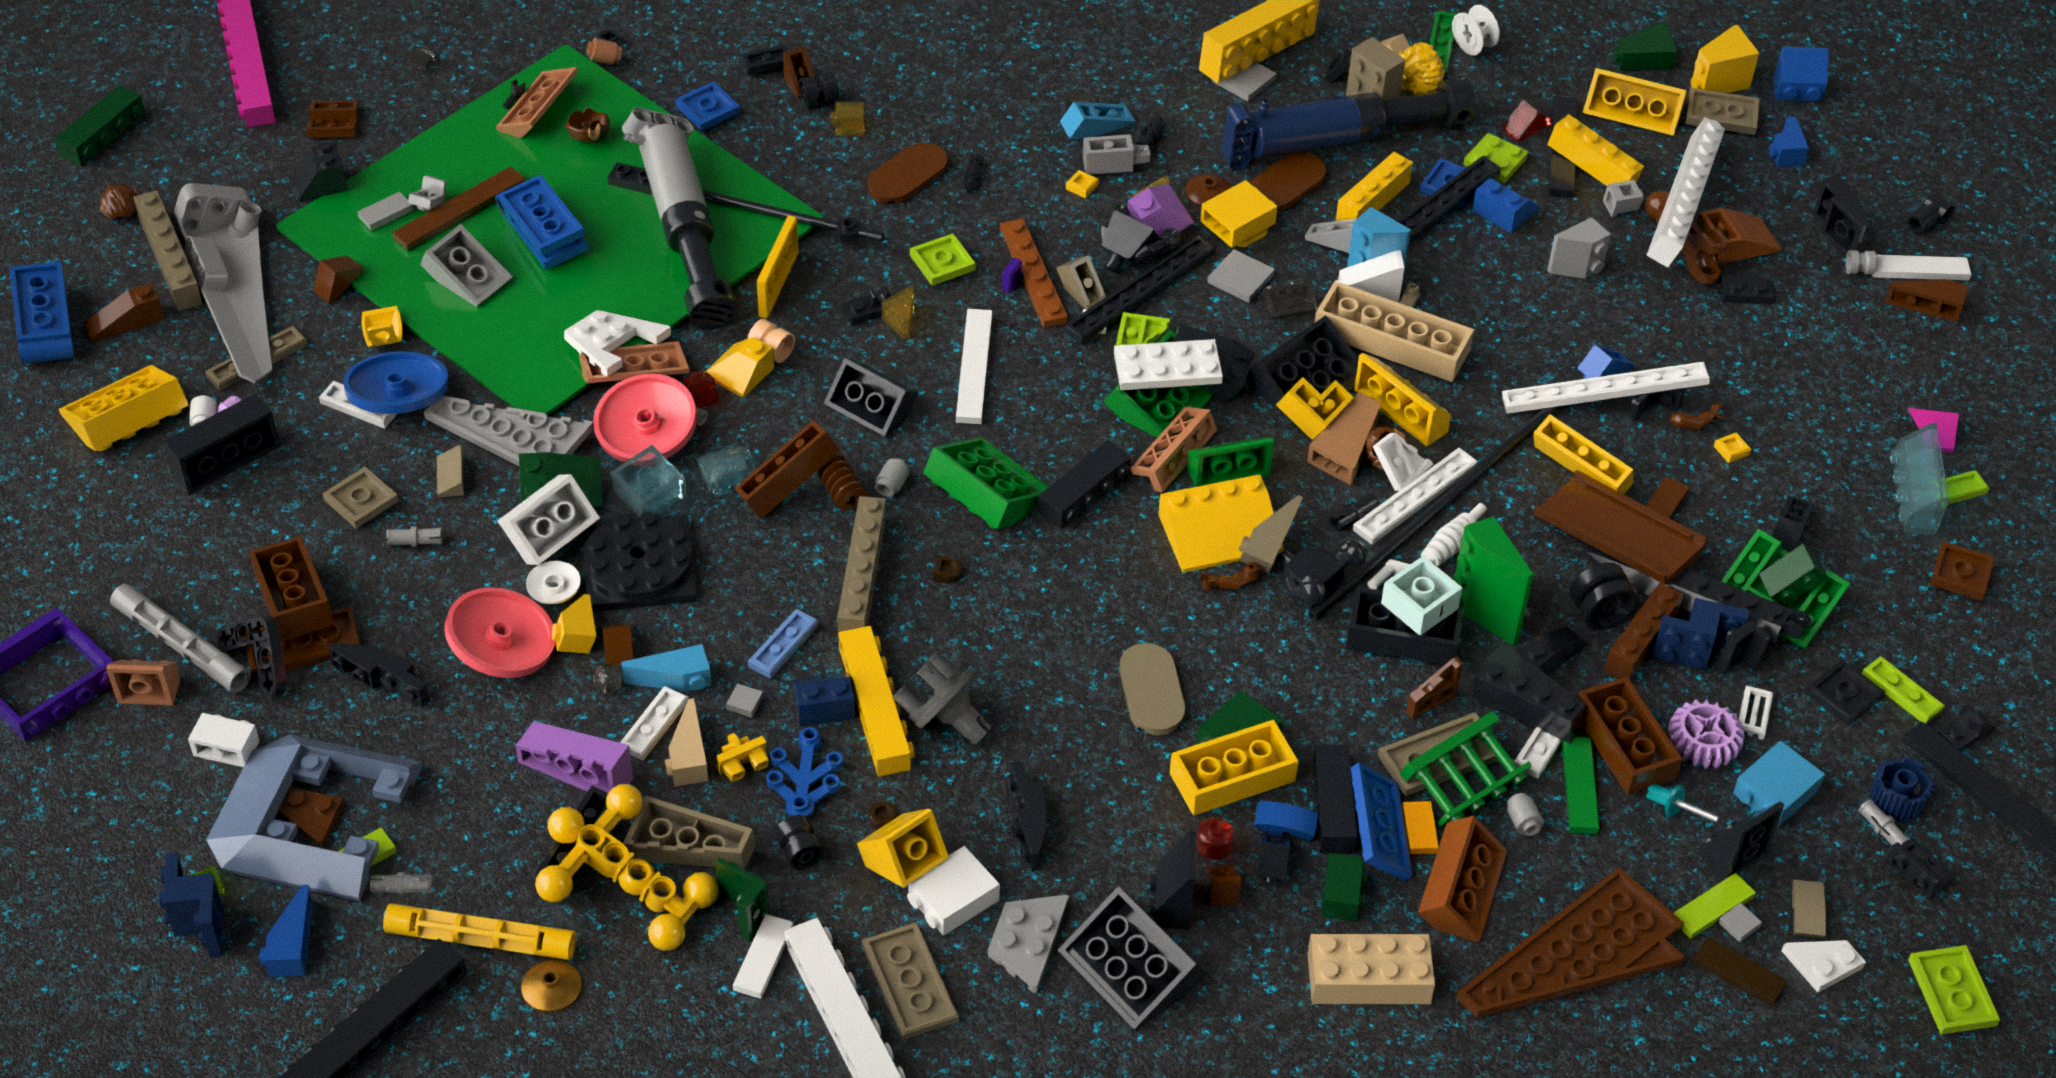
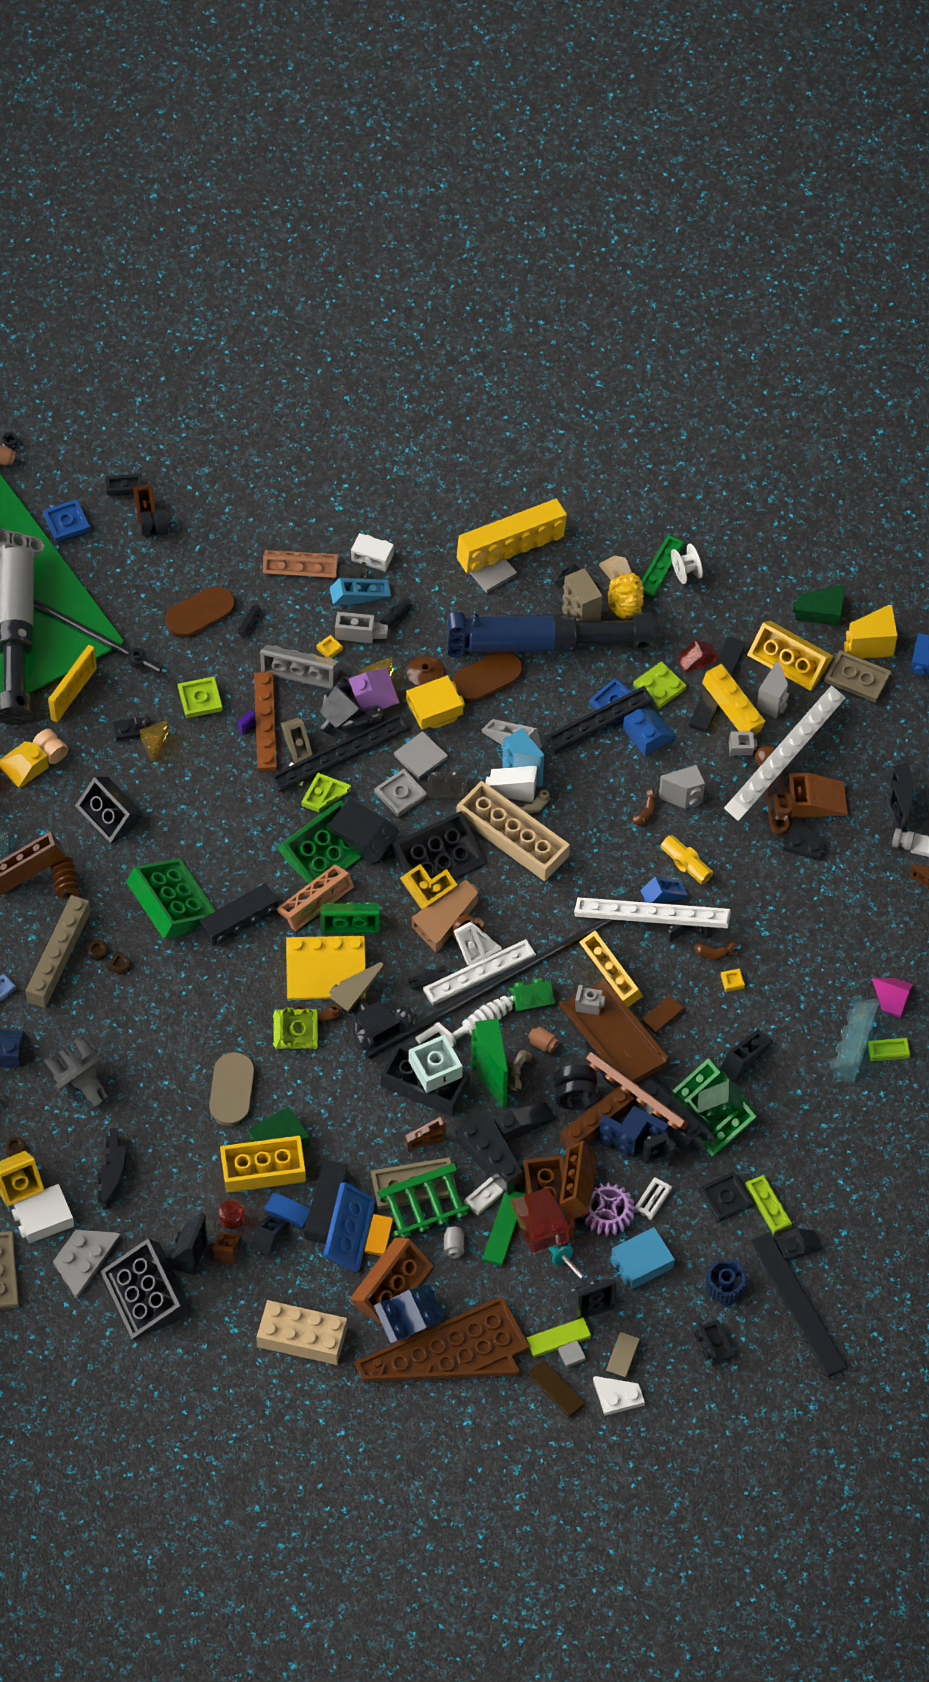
camera: 15 degrees right, 10 degrees up
(848, 118) = (169, 553): clear yellow brick -> none
(874, 701) = (34, 1053): yellow brick -> none
(892, 477) = (103, 880): light grey brick -> none
(911, 559) = (97, 950): none -> dark brown tile
(974, 366) = (194, 795): white tile -> none
(1013, 105) = (300, 563): none -> nougat fence
(1057, 206) = (299, 666): none -> light grey slope
(1096, 74) = (372, 551): none -> white brick
(1167, 364) = (326, 831): white plate -> none
(1209, 600) = (295, 1029): none -> lime slope
(1233, 318) = (401, 792): none -> light grey tile
(1342, 887) = (306, 1269): dark green brick -> none
(1376, 188) = (549, 700): yellow brick -> none
(1401, 400) = (497, 890): yellow slope -> none
(1500, 503) = (532, 995): none -> green bracket
(1511, 910) = (409, 1313): none -> dark blue bracket
(1534, 553) = (543, 1039): none -> nougat brick
(1544, 287) = (648, 811): none -> reddish brown arm
(1574, 496) = (589, 1000): none -> light grey brick
(1616, 327) = (686, 859): none -> yellow piece
(1639, 757) = (541, 1220): none -> clear red slope
(1641, 135) = (773, 693): none -> light grey slope
(1661, 701) = (578, 1180): none -> reddish brown brick
(1701, 584) = (642, 1096): none -> plate
(1789, 146) = (894, 720): blue arch -> none
(1882, 824) = (704, 1304): light grey pin -> none
(1953, 989) = (696, 1435): lime plate -> none
(1962, 570) = (855, 1119): reddish brown plate -> none

